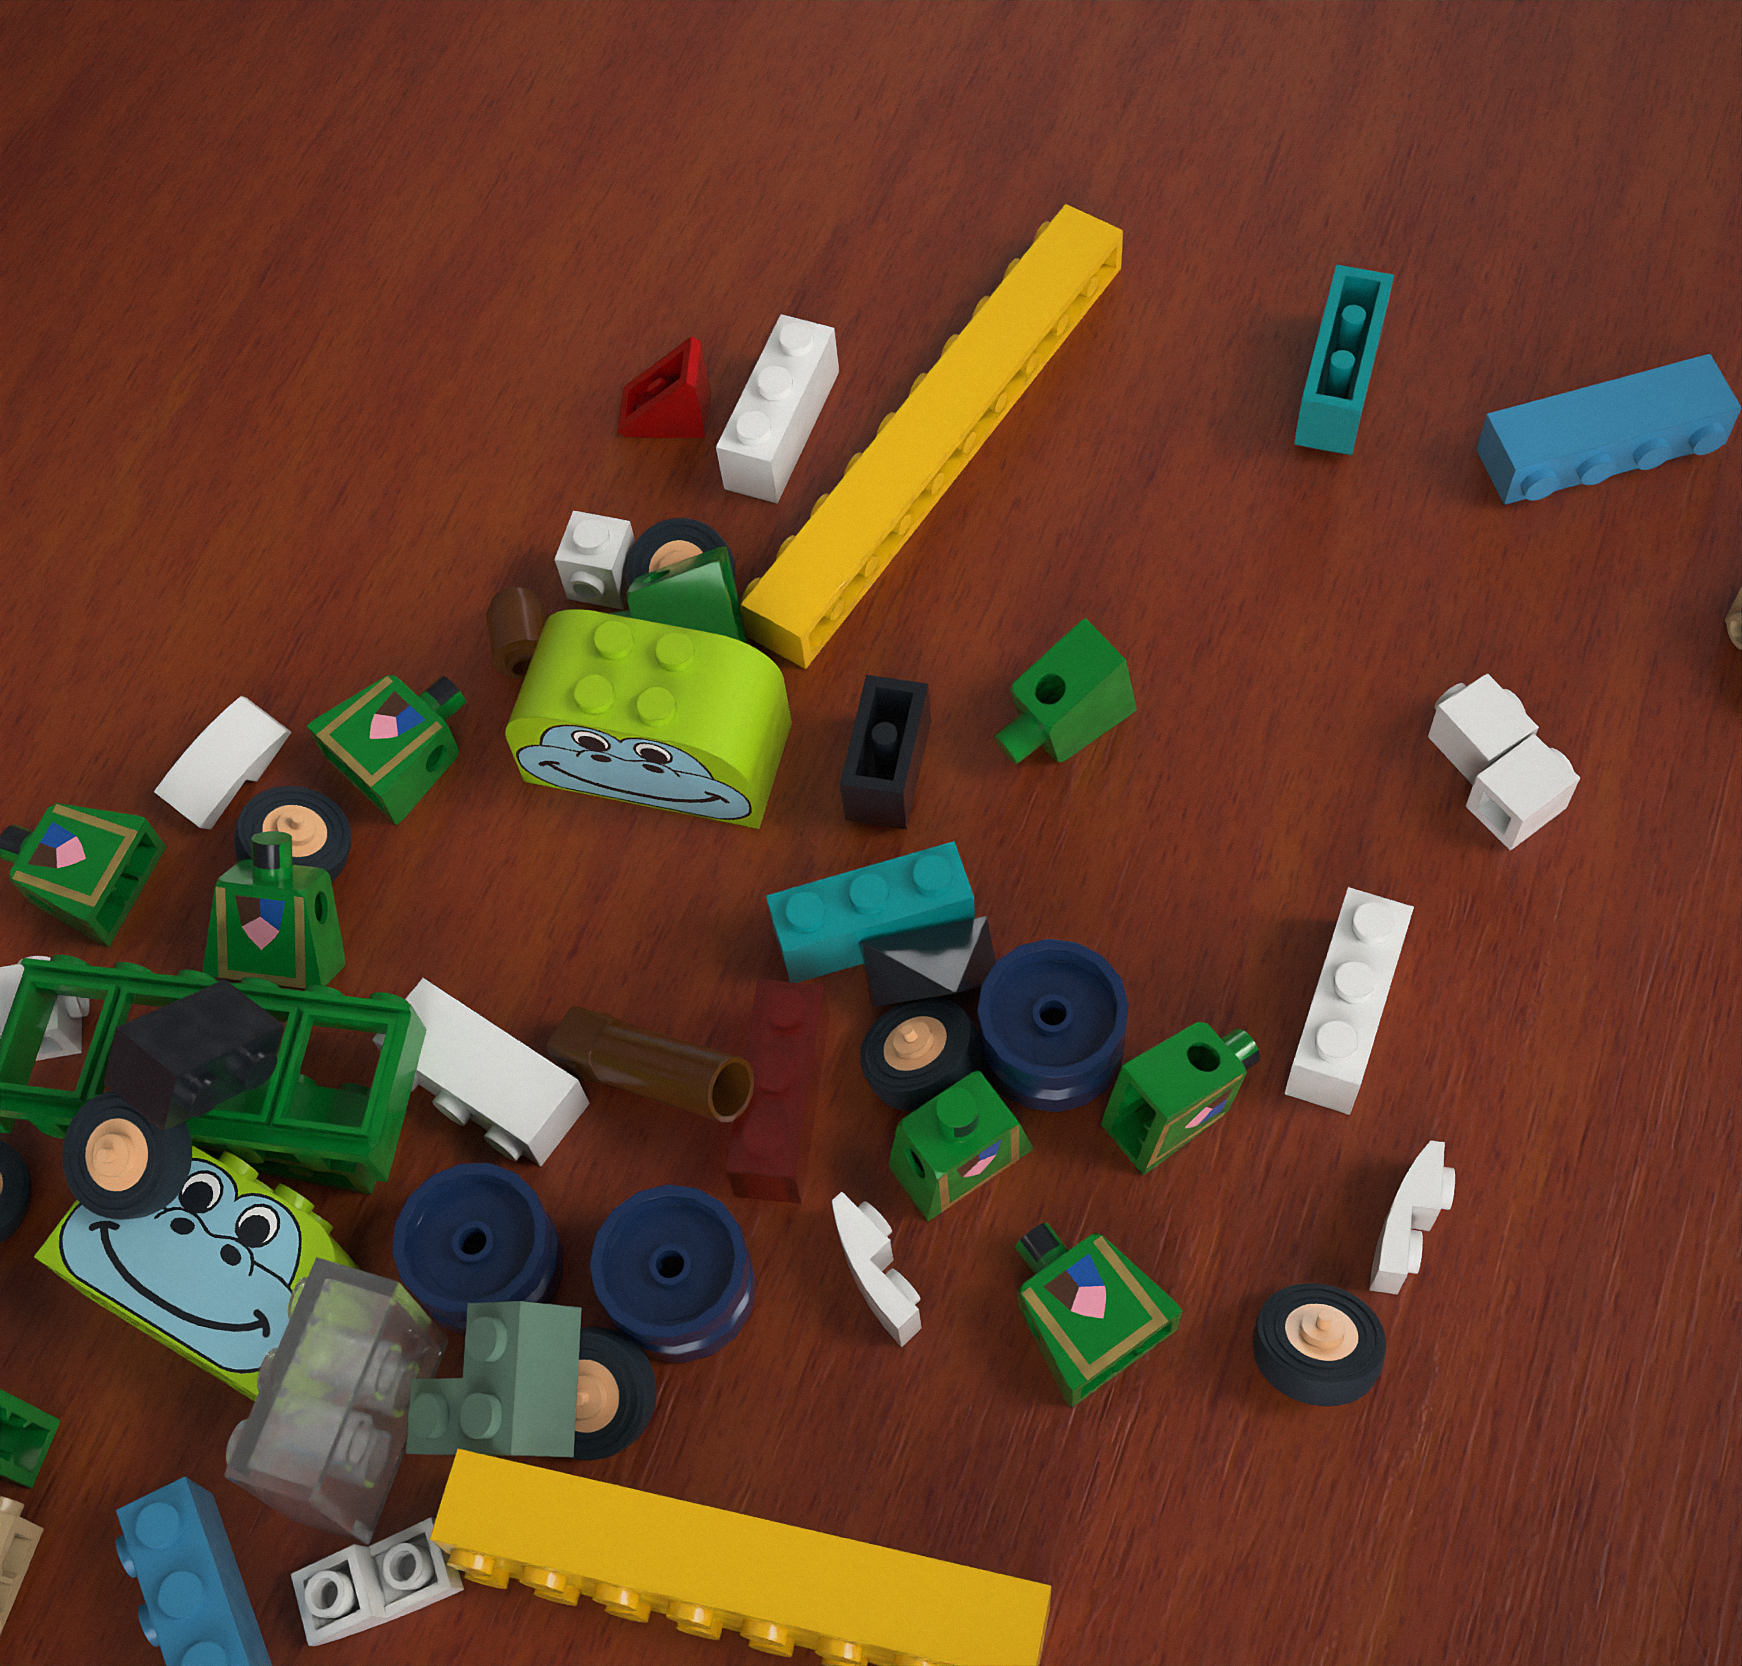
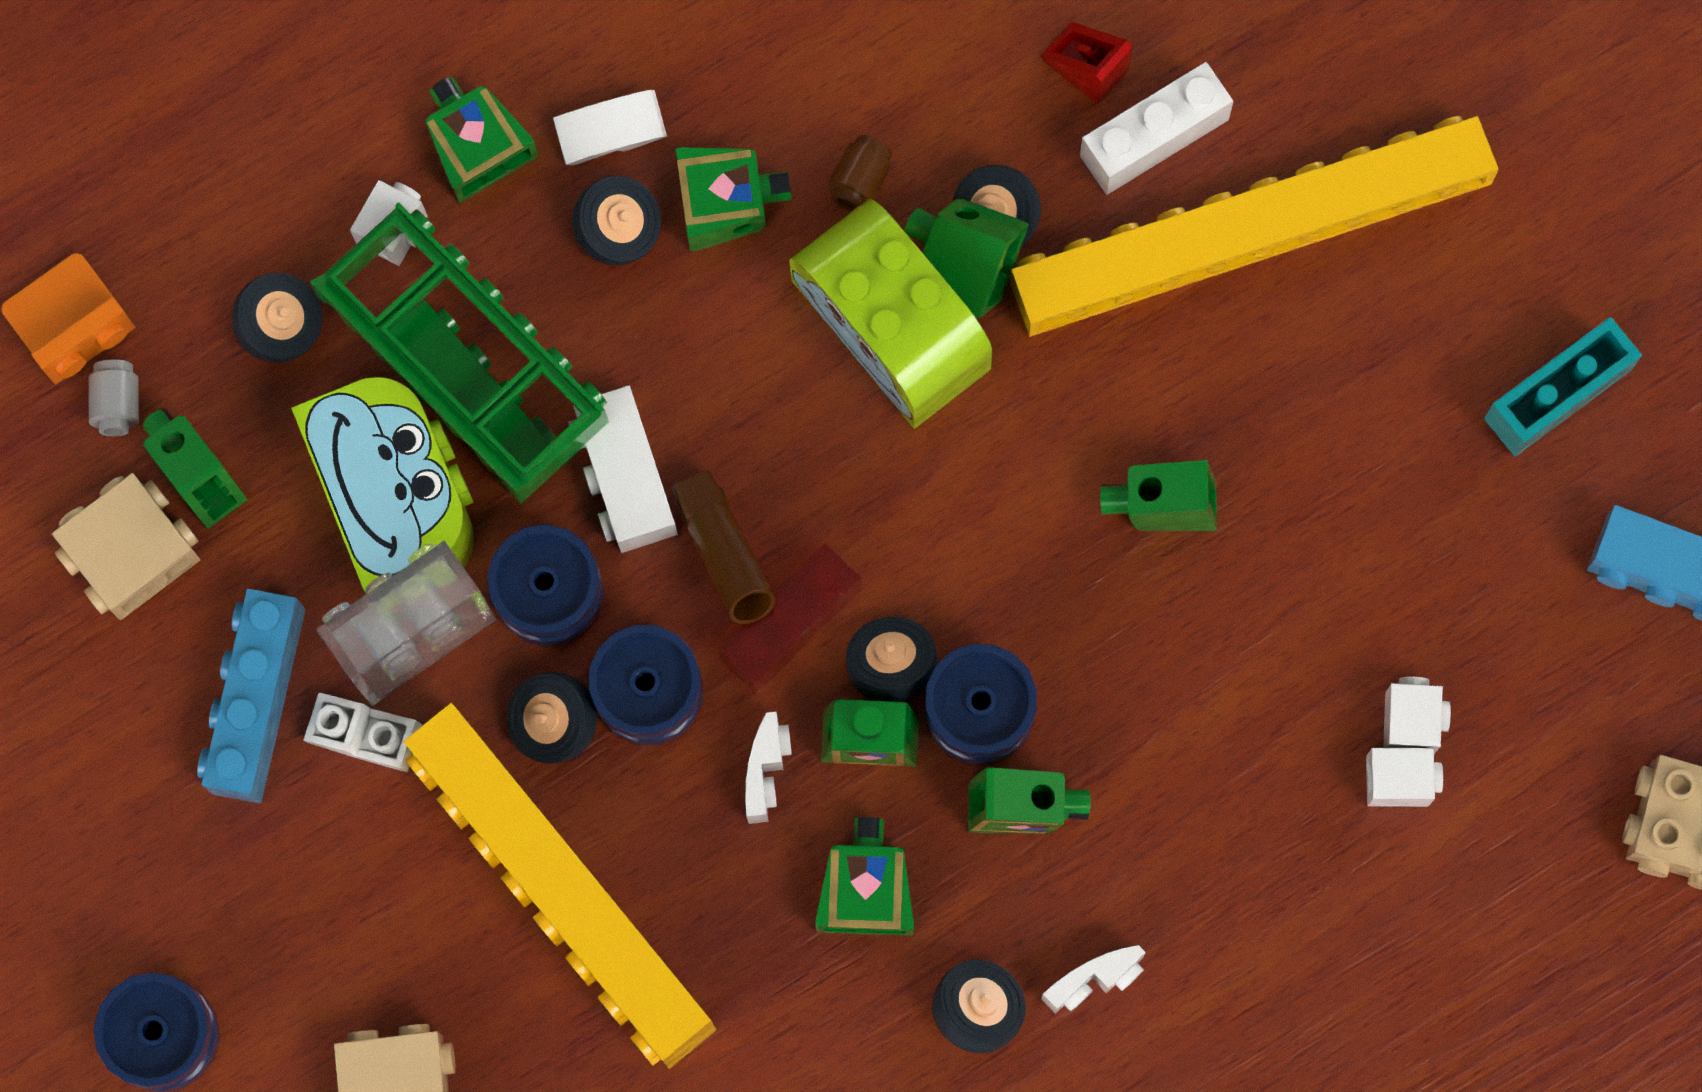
camera: 35 degrees right, 15 degrees up
(122, 1160) = (380, 389): black wheel -> none
(193, 1054) = (455, 361): black brick -> none
(274, 919) = (566, 277): green torso -> none
(513, 1388) = (503, 689): sand green brick -> none
(595, 559) = (947, 157): white brick -> none
(826, 919) = (932, 546): teal brick -> none
(886, 752) = (1024, 445): black brick -> none
(928, 961) = (942, 607): black slope -> none
(1349, 1001) = (1172, 824): white brick -> none

